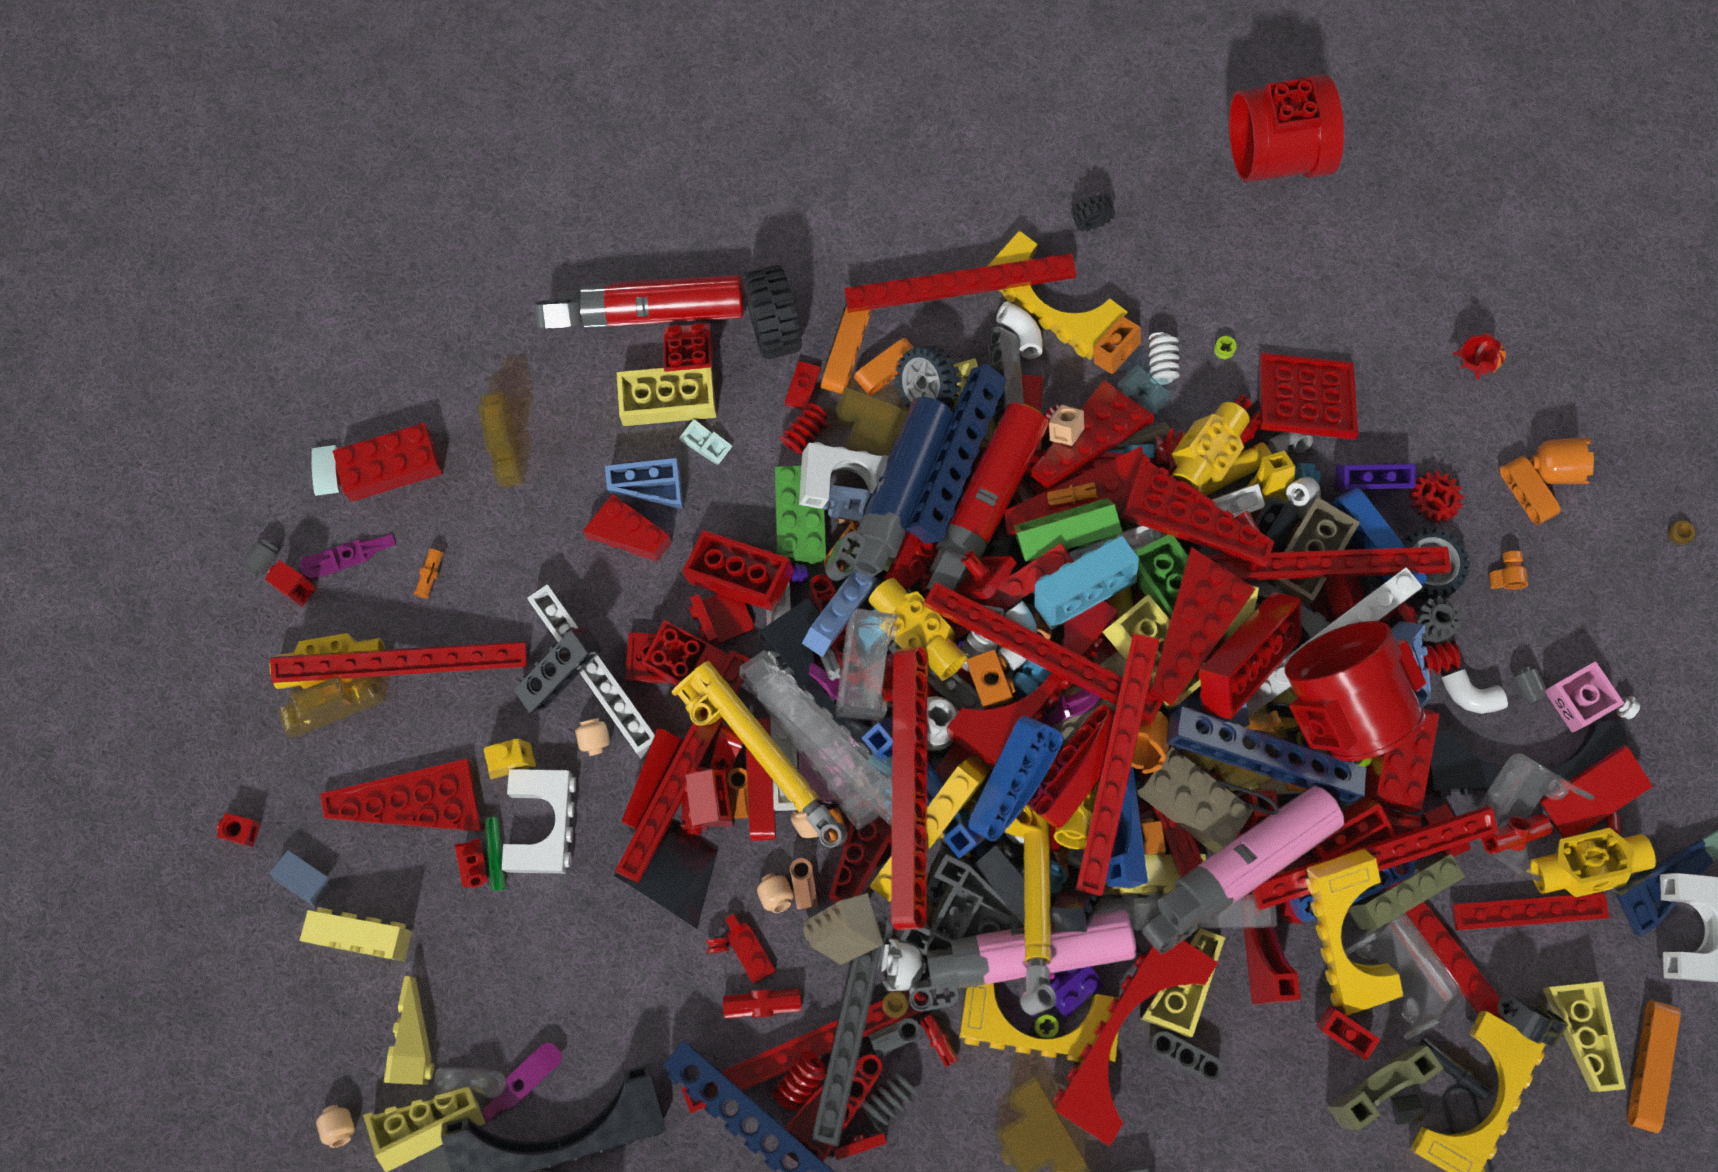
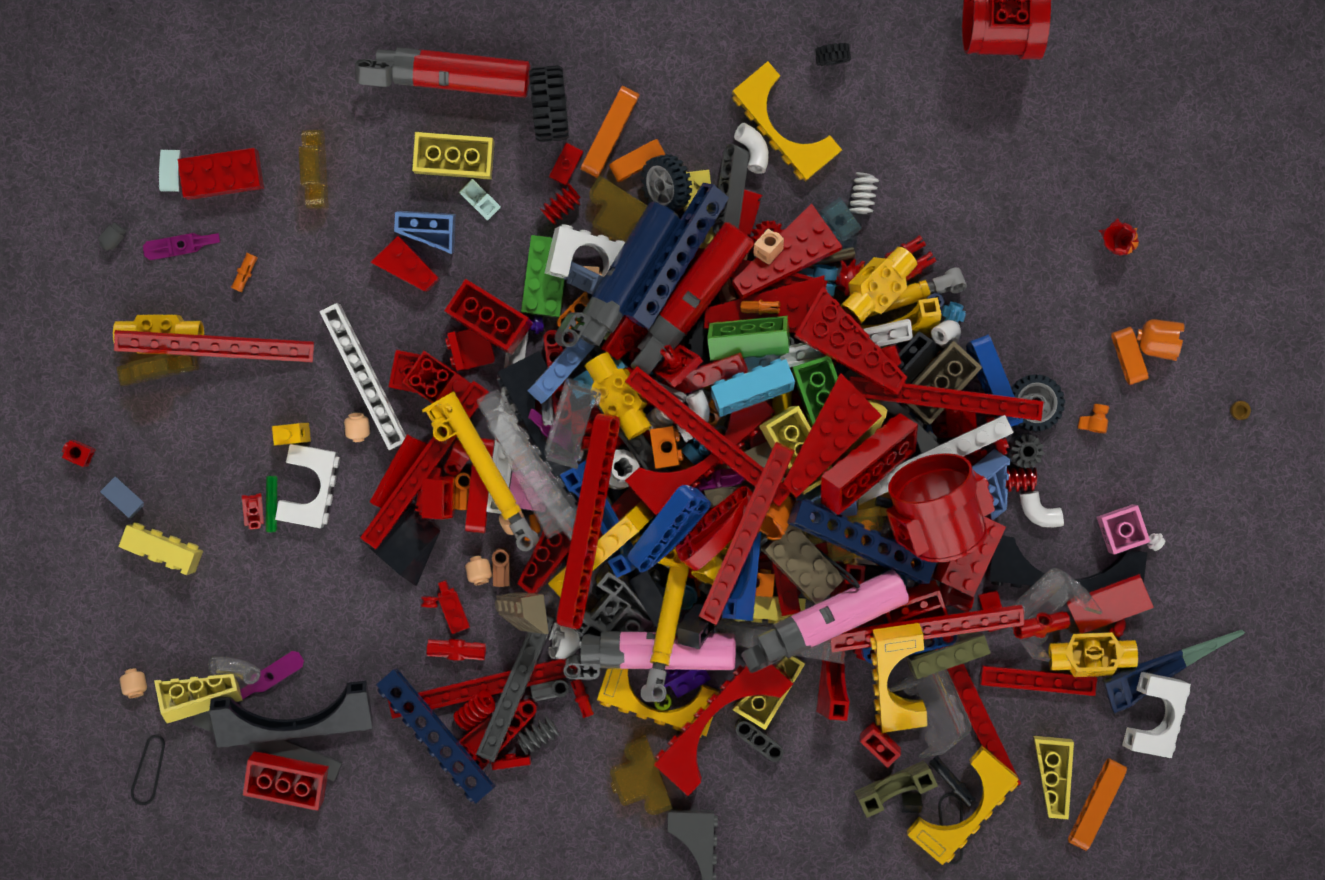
camera: 10 degrees right, 15 degrees up
(290, 583) = (134, 265): red brick -> none
(410, 1057) = (193, 645): light yellow wedge -> none
(422, 798) = (219, 452): red wing -> none
(557, 669) = (336, 374): black brick -> none
(688, 347) = (476, 122): red slope -> none
(882, 764) = (571, 499): clear light blue arm -> none
(895, 1004) = (553, 668): pearl gold tile -> none
(960, 283) = (709, 100): red plate -> none
(1117, 345) = (827, 176): orange brick -> none
(1224, 354) = (911, 188): lime bush -> none
(1307, 396) = (971, 248): red plate -> none
(1375, 476) = (1009, 324): dark purple brick -> none
(1436, 497) = (1053, 341): red gear -> none
(1530, 684) = (1086, 511): dark grey brick -> none
(1533, 1020) = (1015, 763): black piece -> none

